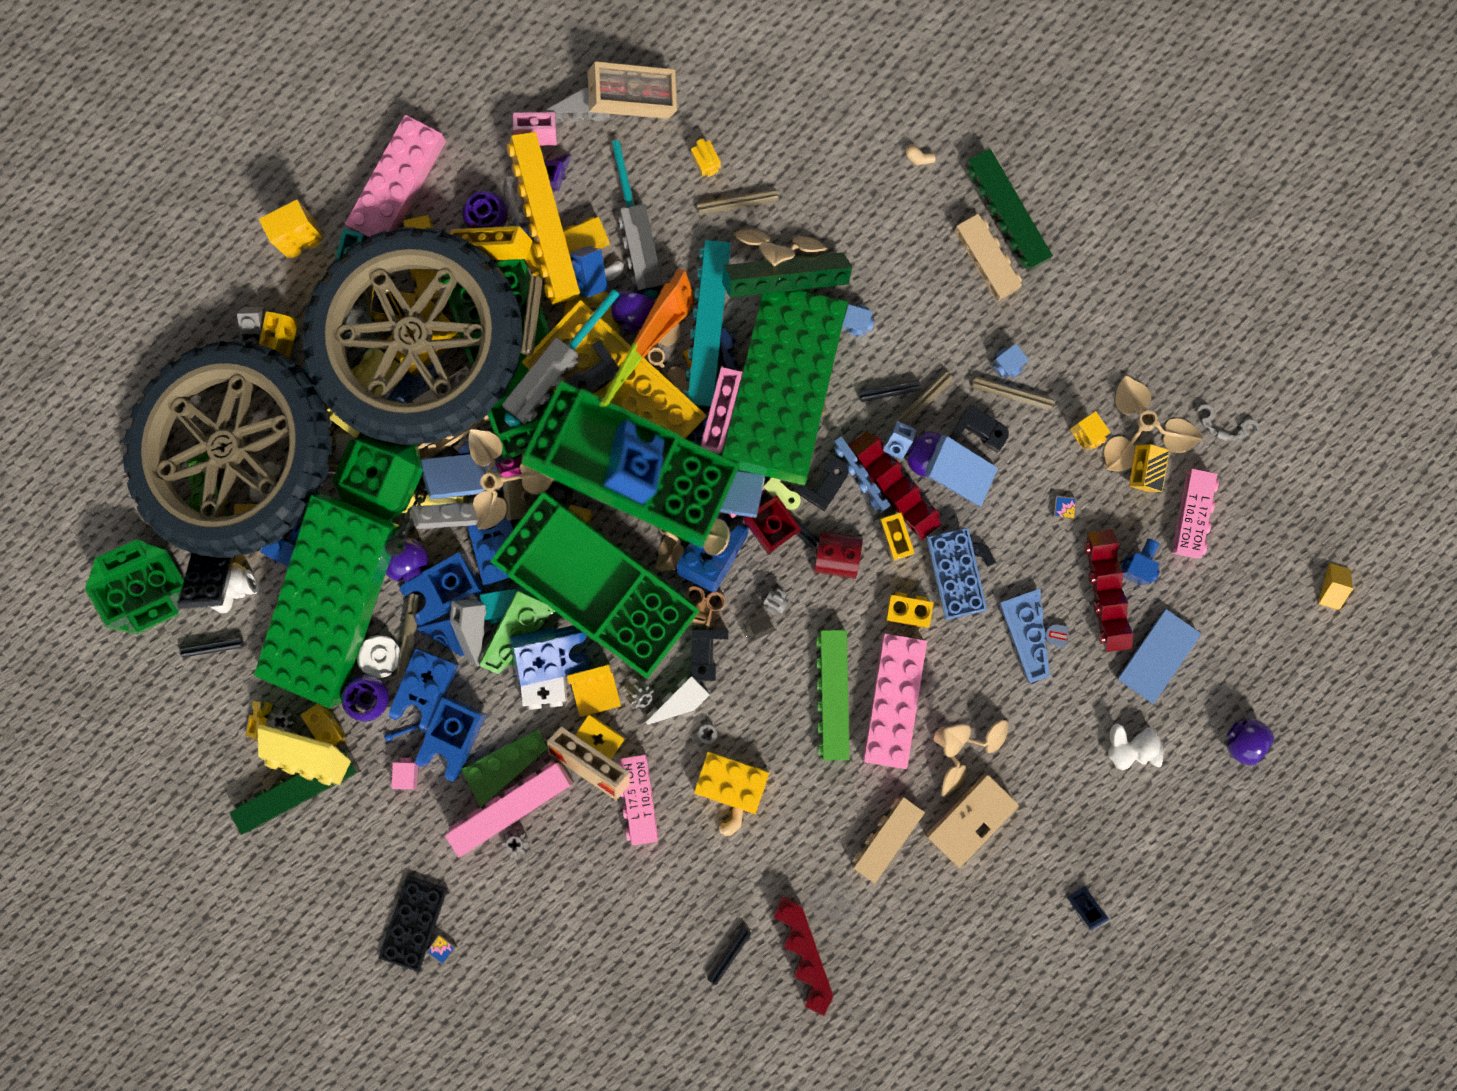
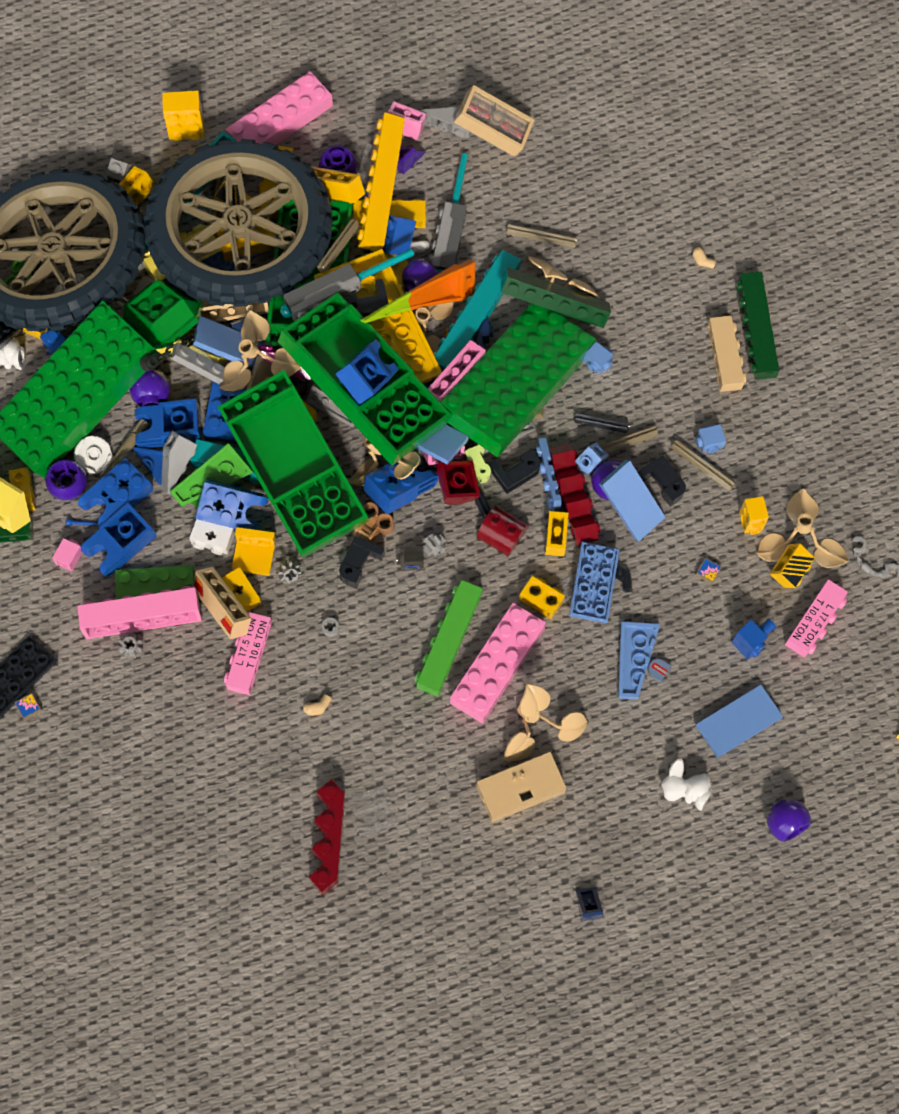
camera: 20 degrees right, 15 degrees down
(684, 700) = (320, 591): white slope -> none
(706, 158) = (530, 192): yellow brick -> none
(729, 955) = (264, 814): black axle -> none
(731, 782) = (332, 671): yellow brick -> none
(888, 839) = (442, 773): tan brick -> none
(1109, 597) = (717, 649): dark red brick -> none

